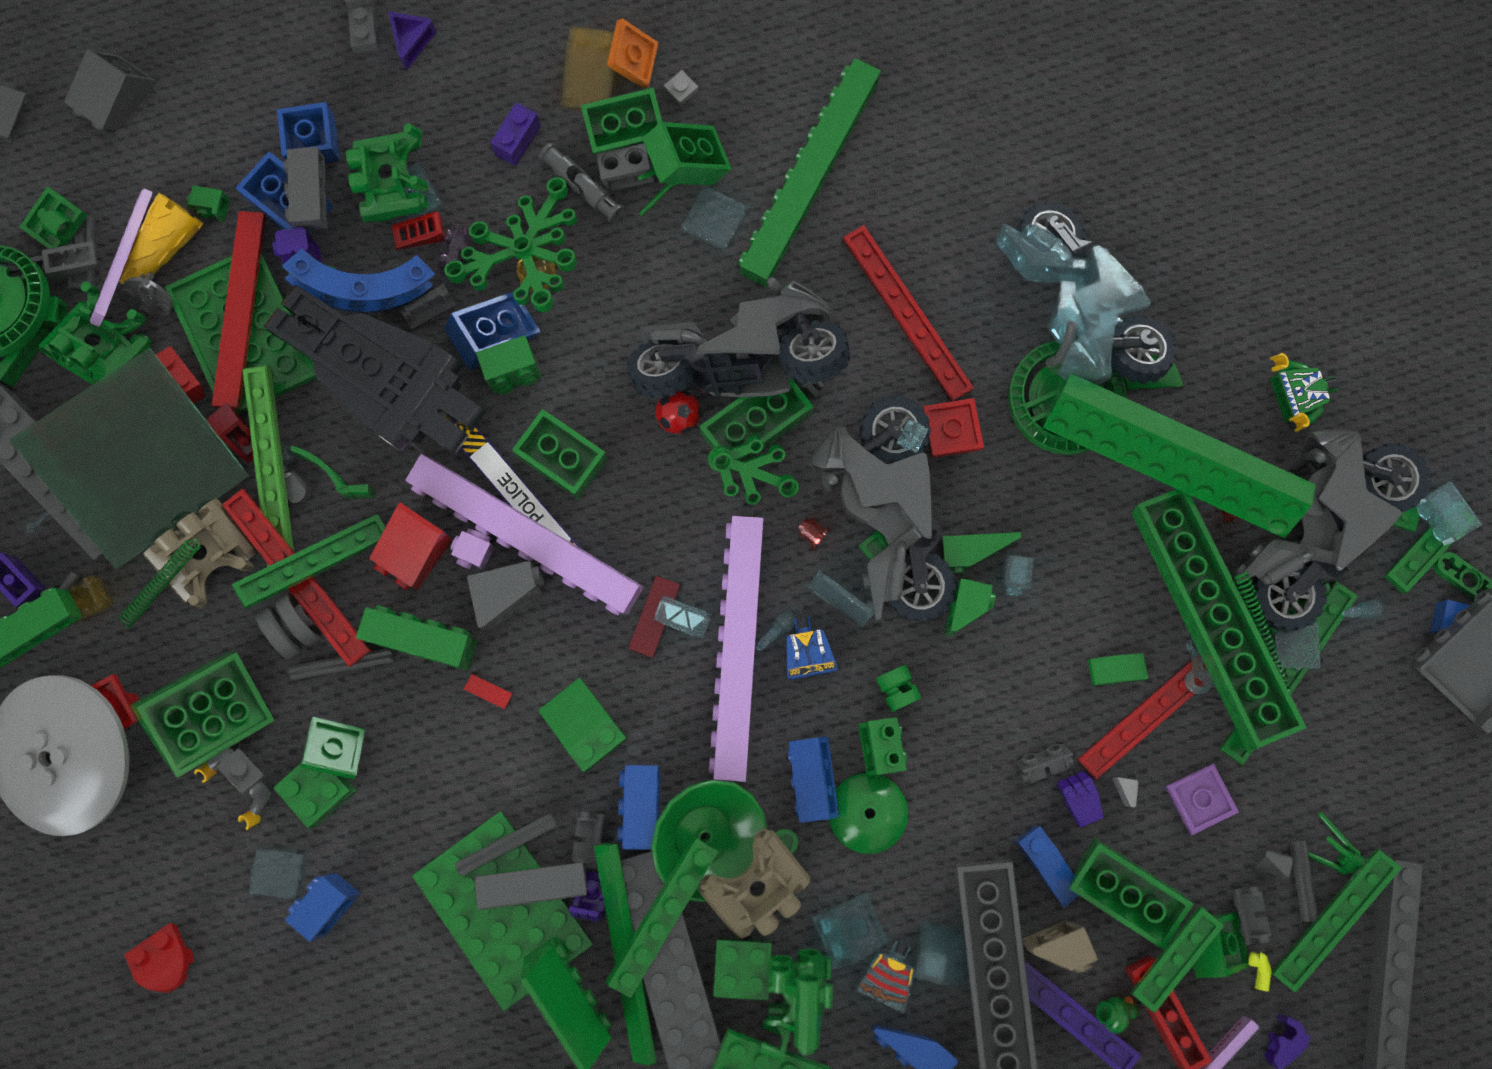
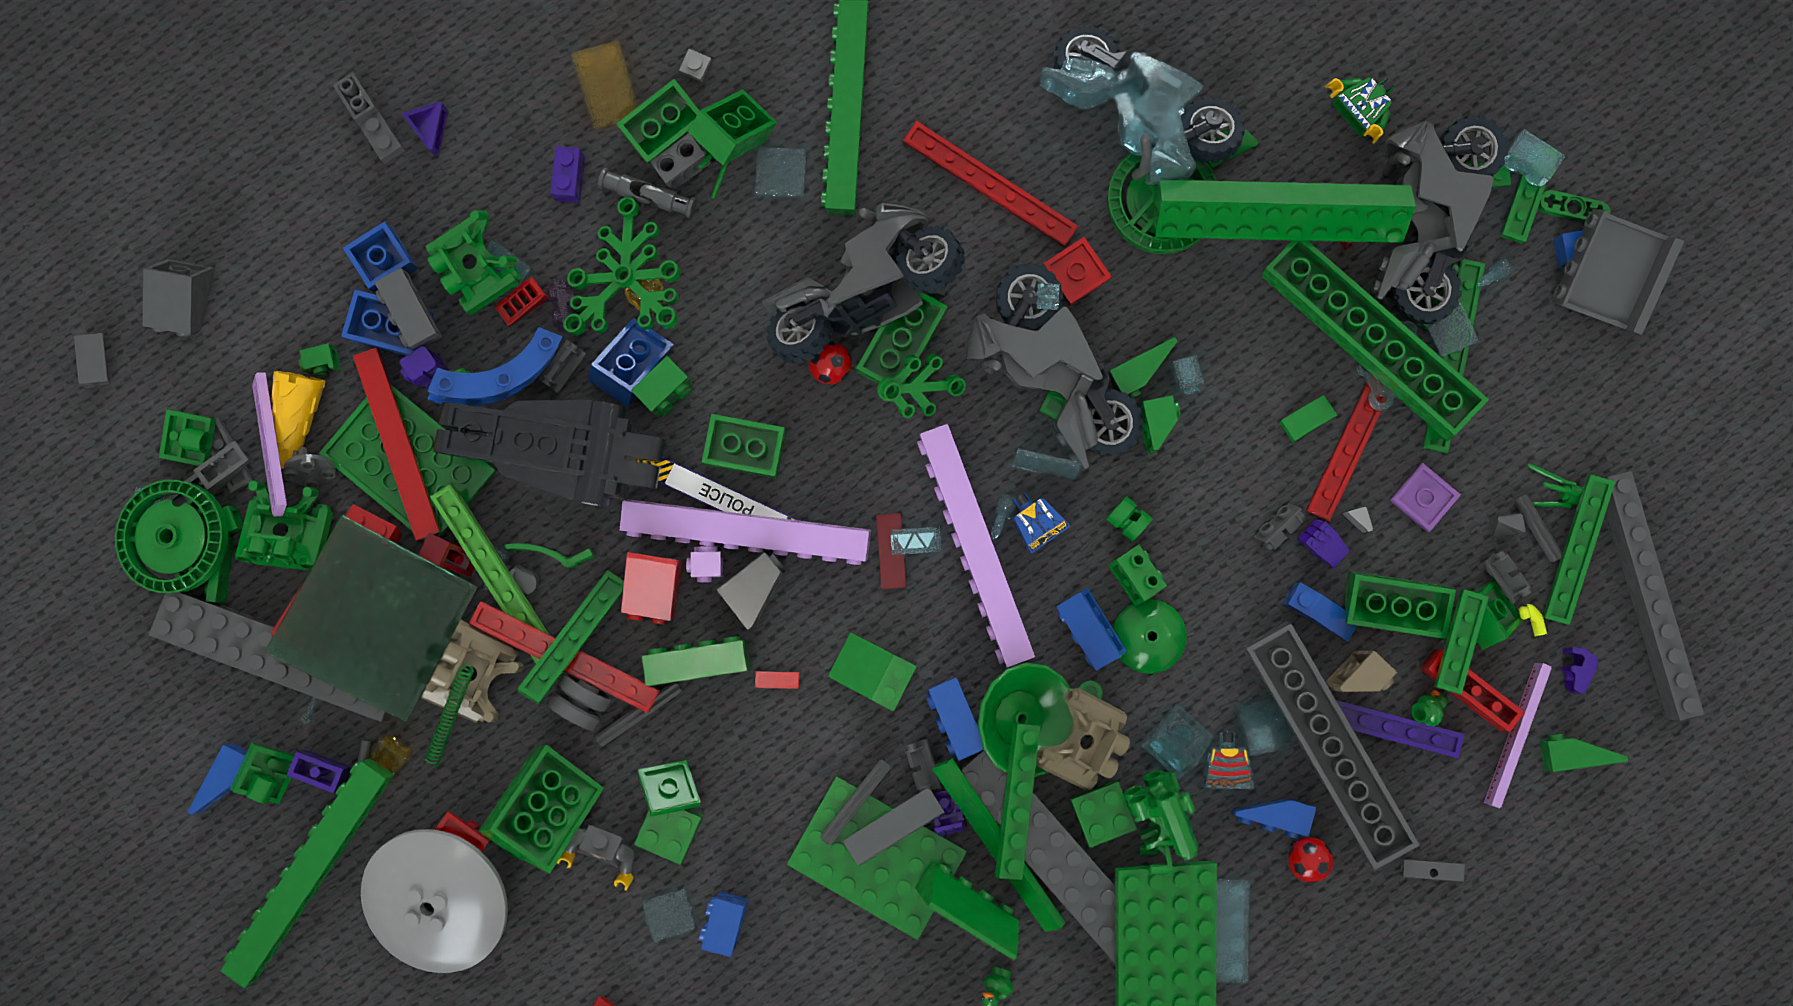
camera: 20 degrees left, 5 degrees up
(632, 53) = (638, 53): orange tile -> none
(812, 532) = (994, 416): clear red brick -> none
(1258, 619) = (1408, 325): green piece -> none

